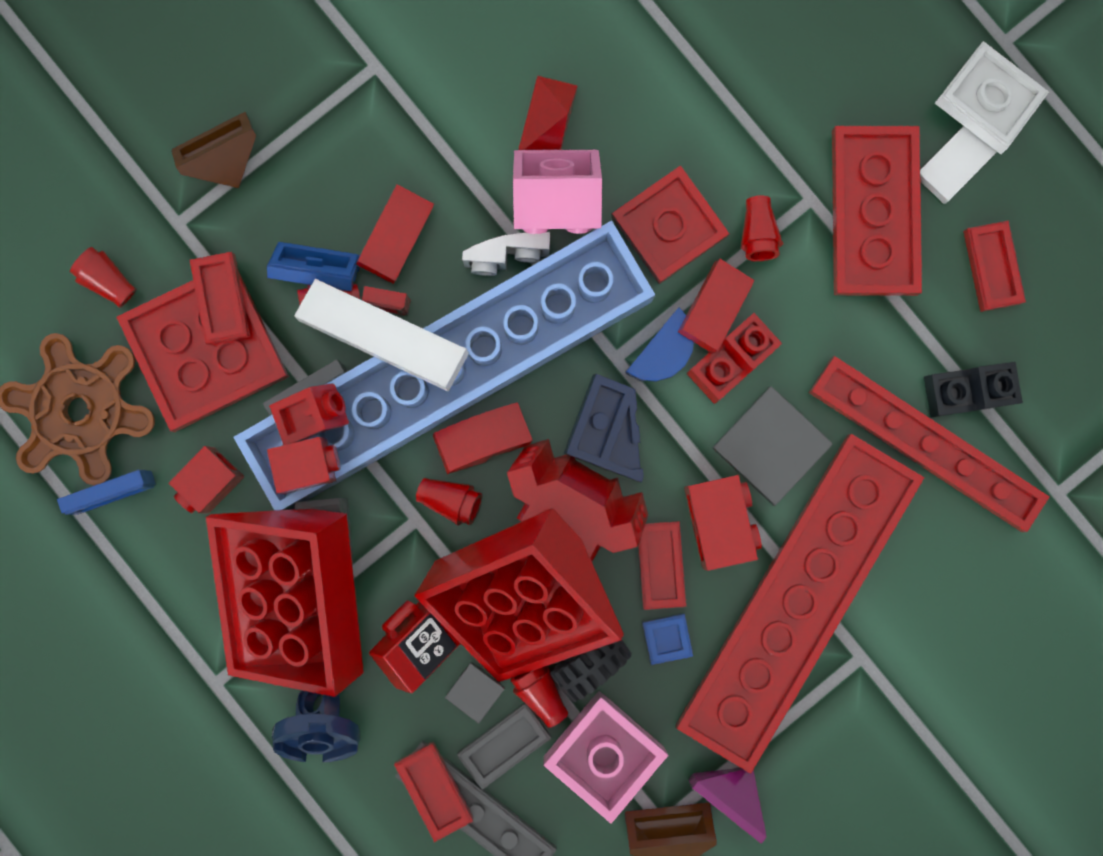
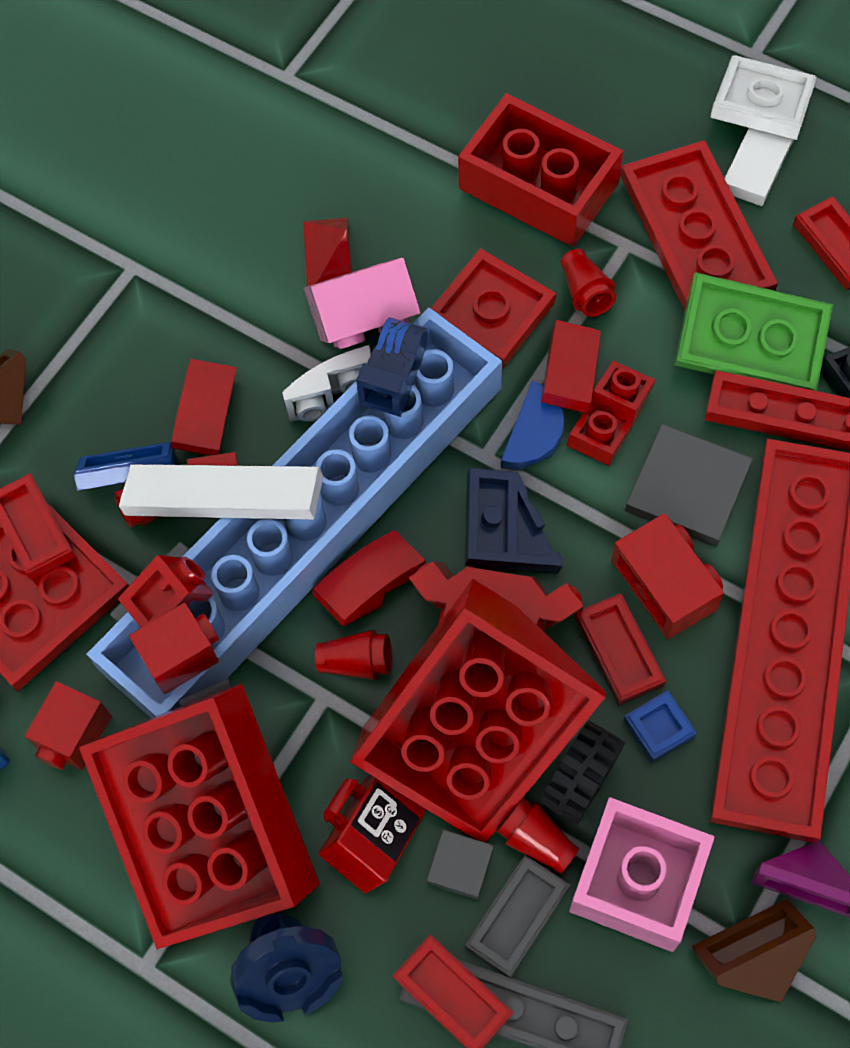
camera: 10 degrees left, 20 degrees down
(560, 272) = (392, 366): none -> dark blue leg
(760, 105) = (539, 169): none -> red brick
(880, 333) = (753, 332): none -> bright green tile

